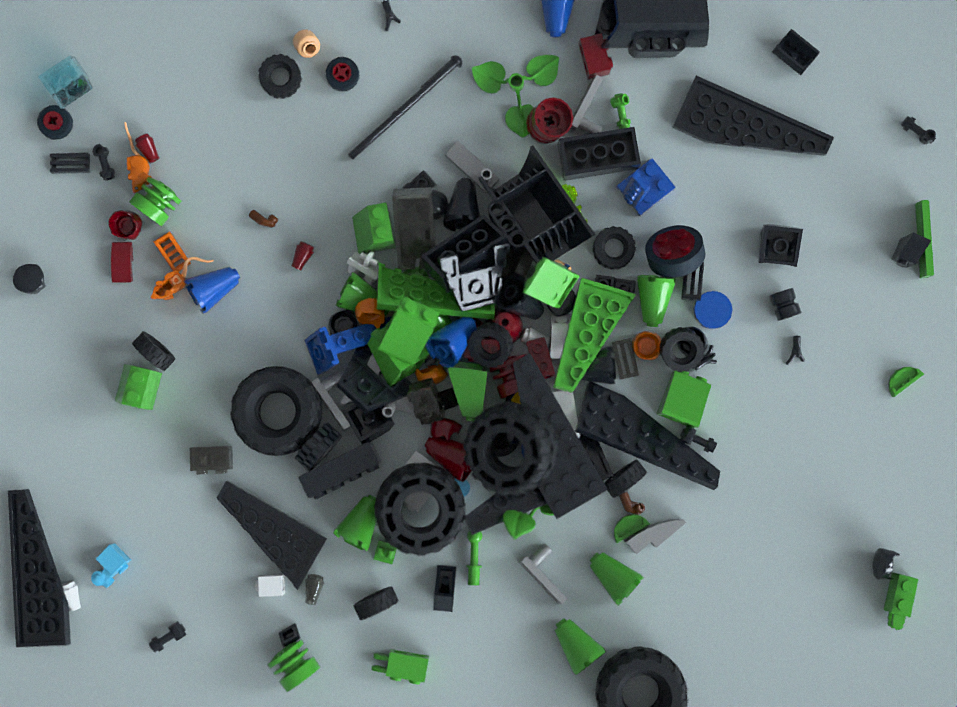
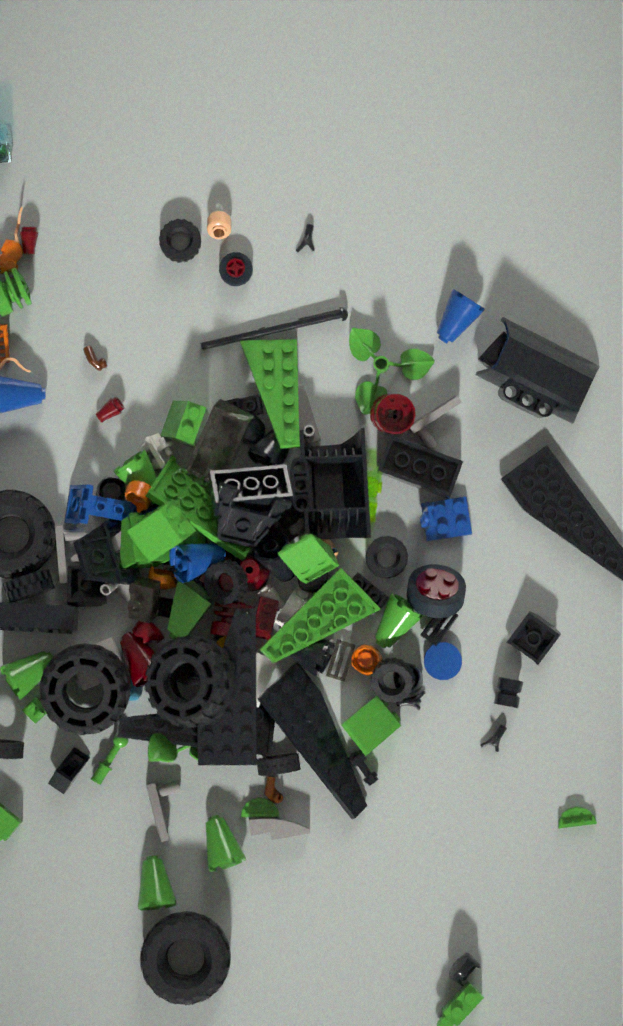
camera: 30 degrees right, 0 degrees up
(432, 147) = (276, 377): none -> bright green wing
(593, 57) = (465, 380): dark red brick -> none
(619, 102) = (466, 430): bright green bar -> none

